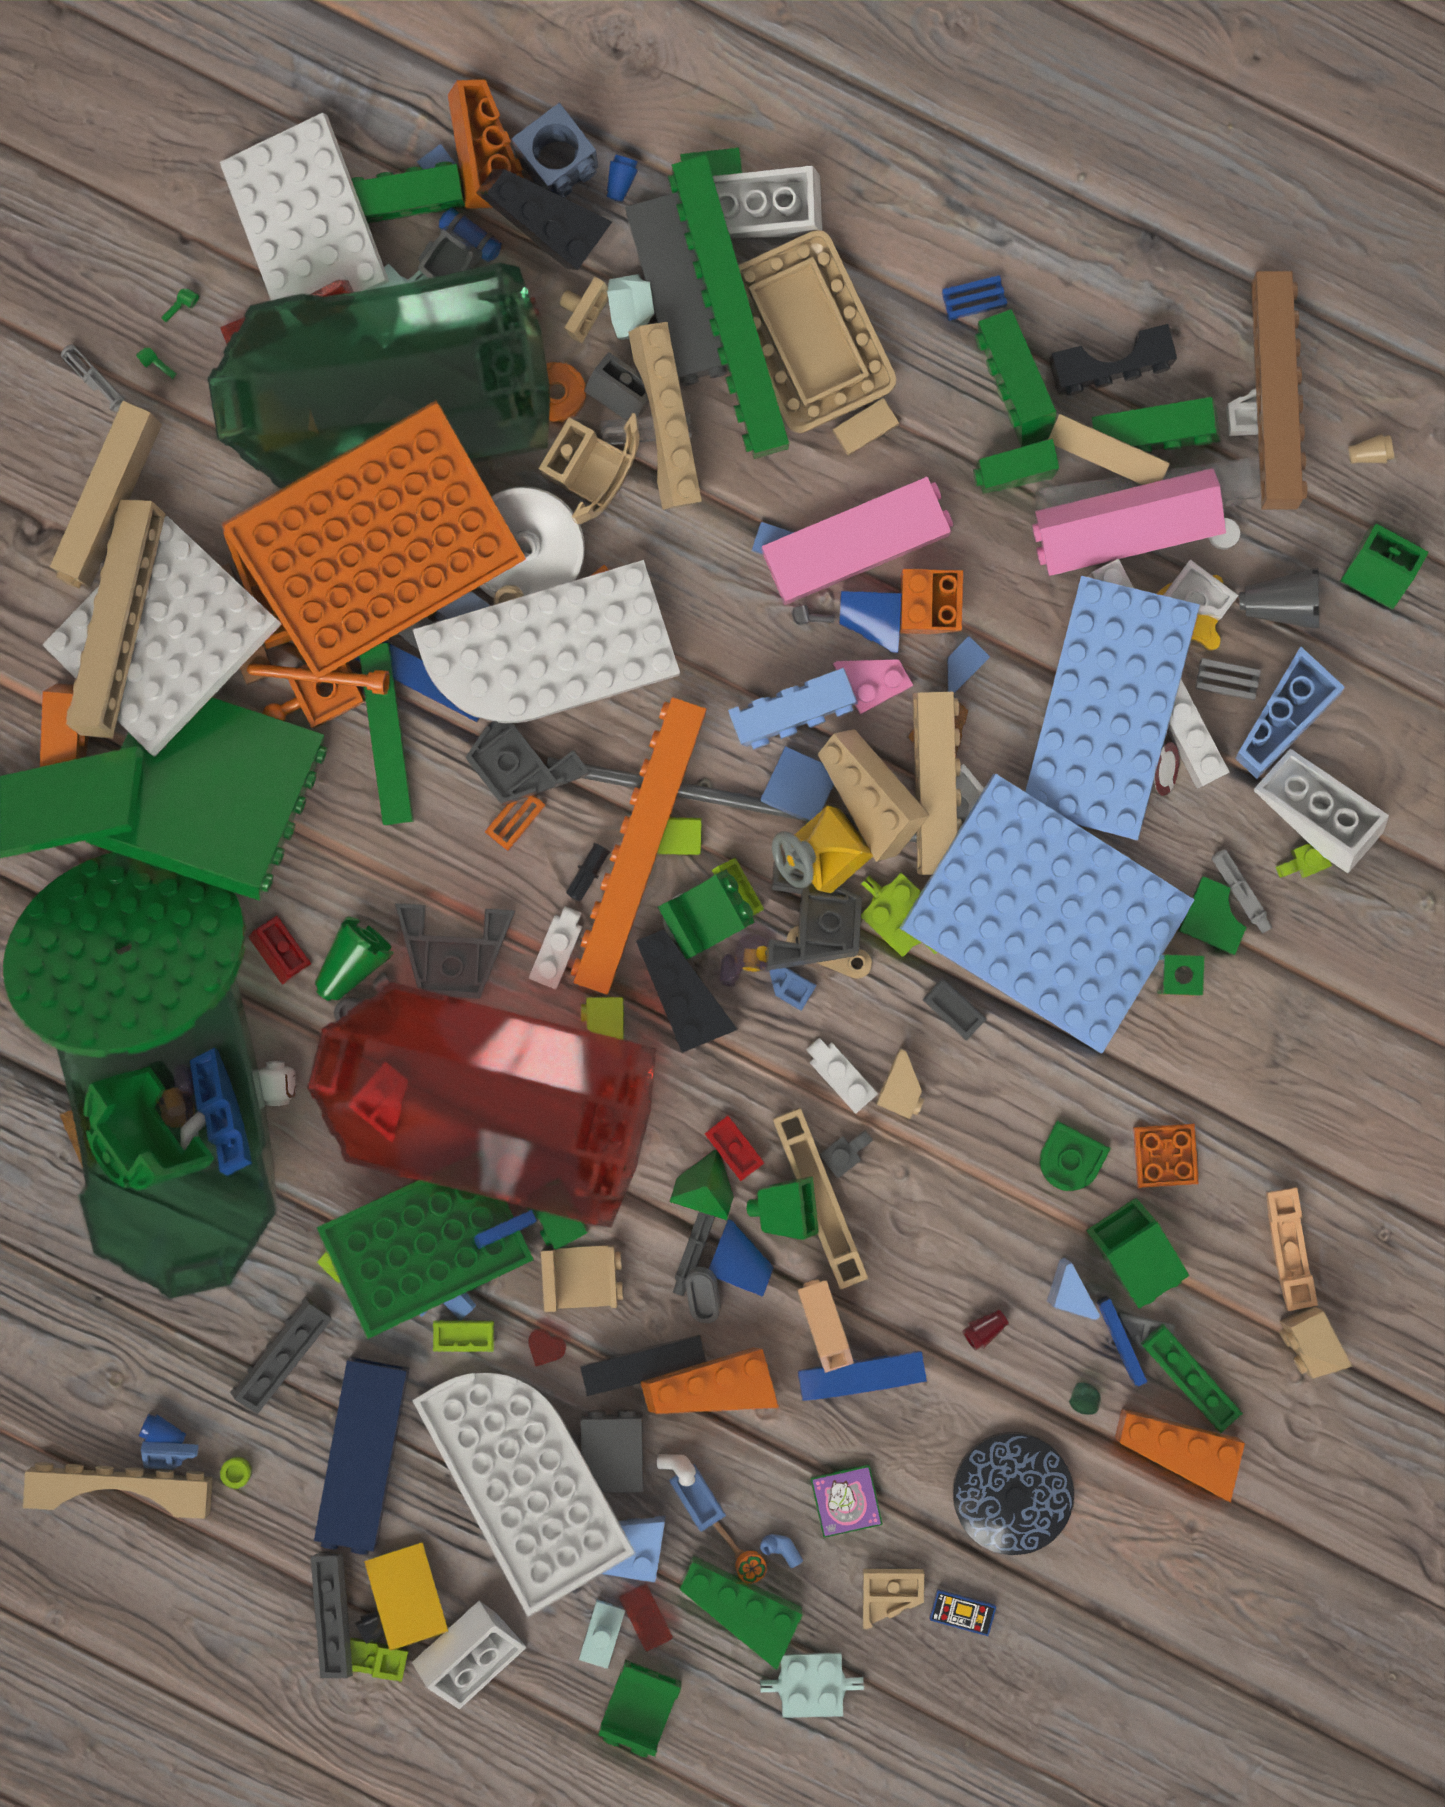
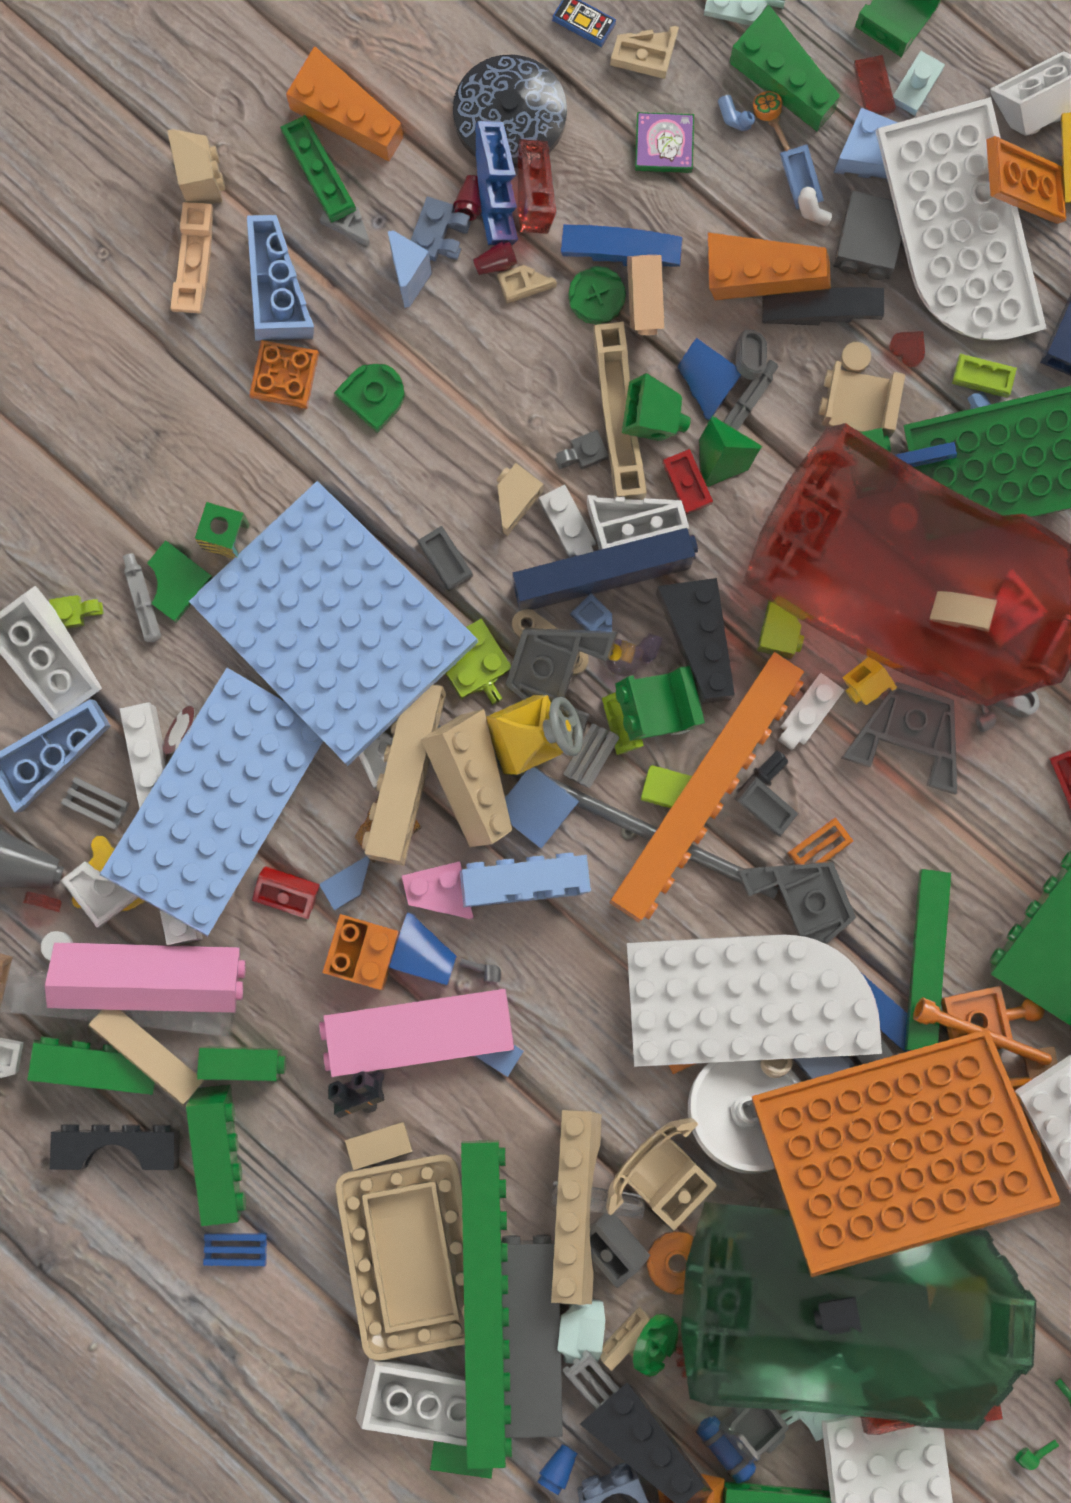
camera: 165 degrees left, 5 degrees down
(351, 959) = (1011, 751): green cone -> none
(394, 380) = (838, 1315): none -> black window
(431, 1082) = (963, 610): none -> tan slope
(469, 1544) = (1026, 180): none -> orange tile
(508, 990) = (867, 681): none -> yellow brick
(560, 311) = (654, 1344): none -> green tile
(577, 843) = (766, 806): none -> dark grey tile
(596, 1322) = (856, 357): none -> tan tile
(623, 273) = (580, 1366): none -> light grey tile
(763, 849) = (588, 755): none -> light grey tile
(776, 1088) = (628, 520): none -> white wedge
(794, 1032) = (604, 569): none -> dark blue brick
(873, 1320) = (597, 295): none -> green tile
(896, 468) = (359, 1094): none -> black hips
(951, 1313) = (523, 282): none -> tan tile
(965, 1414) = (535, 187): none -> clear red slope
(1007, 1407) = (494, 175): none -> blue slope
(1020, 642) = (285, 892): none -> red slope
(1029, 1386) = (468, 198): none -> dark red cone
(1059, 1345) = (433, 225): none -> sand blue plate
(1085, 1399) = (422, 173): clear green tile -> none
(1121, 1341) = (373, 216): blue tile -> none
(1138, 1253) = (336, 291): green slope -> none
(1197, 1234) = (276, 294): none -> light blue wedge
(1250, 571) = (42, 901): none -> clear red tile

